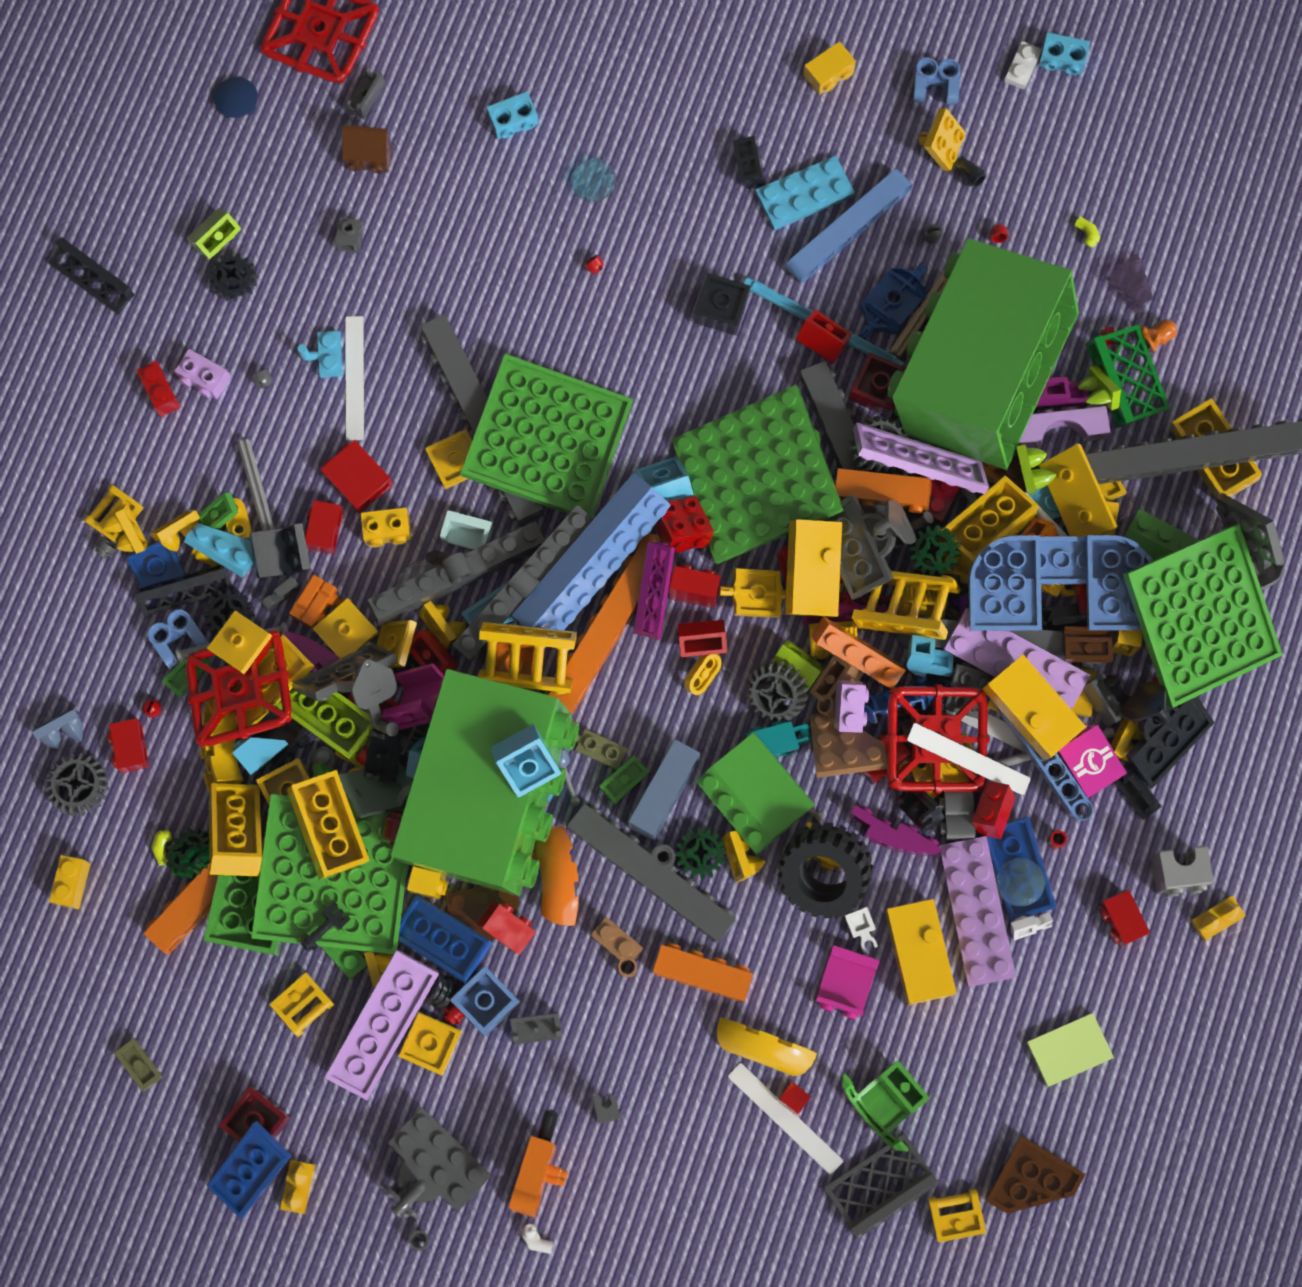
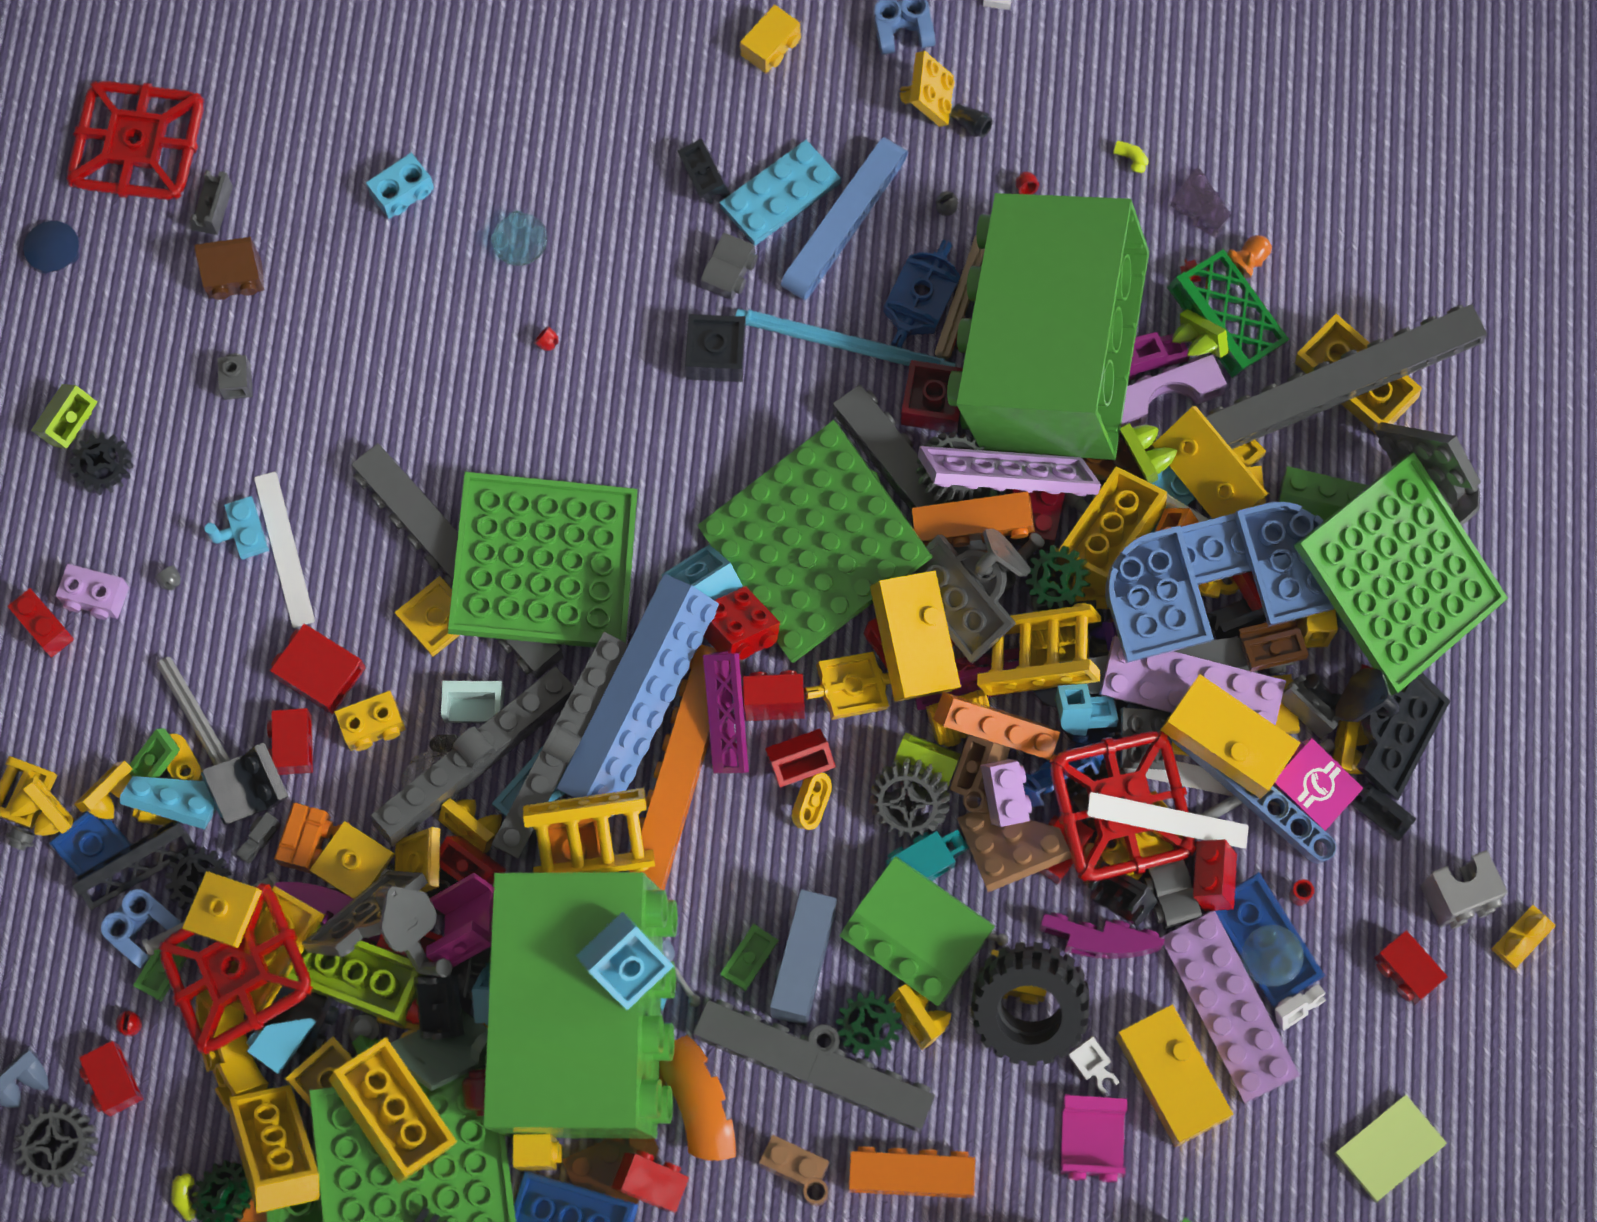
camera: 15 degrees left, 5 degrees down
(600, 749) = (710, 928): olive plate -> none
(749, 241) = (728, 266): none -> dark grey brick
(824, 336) = (850, 355): red brick -> none

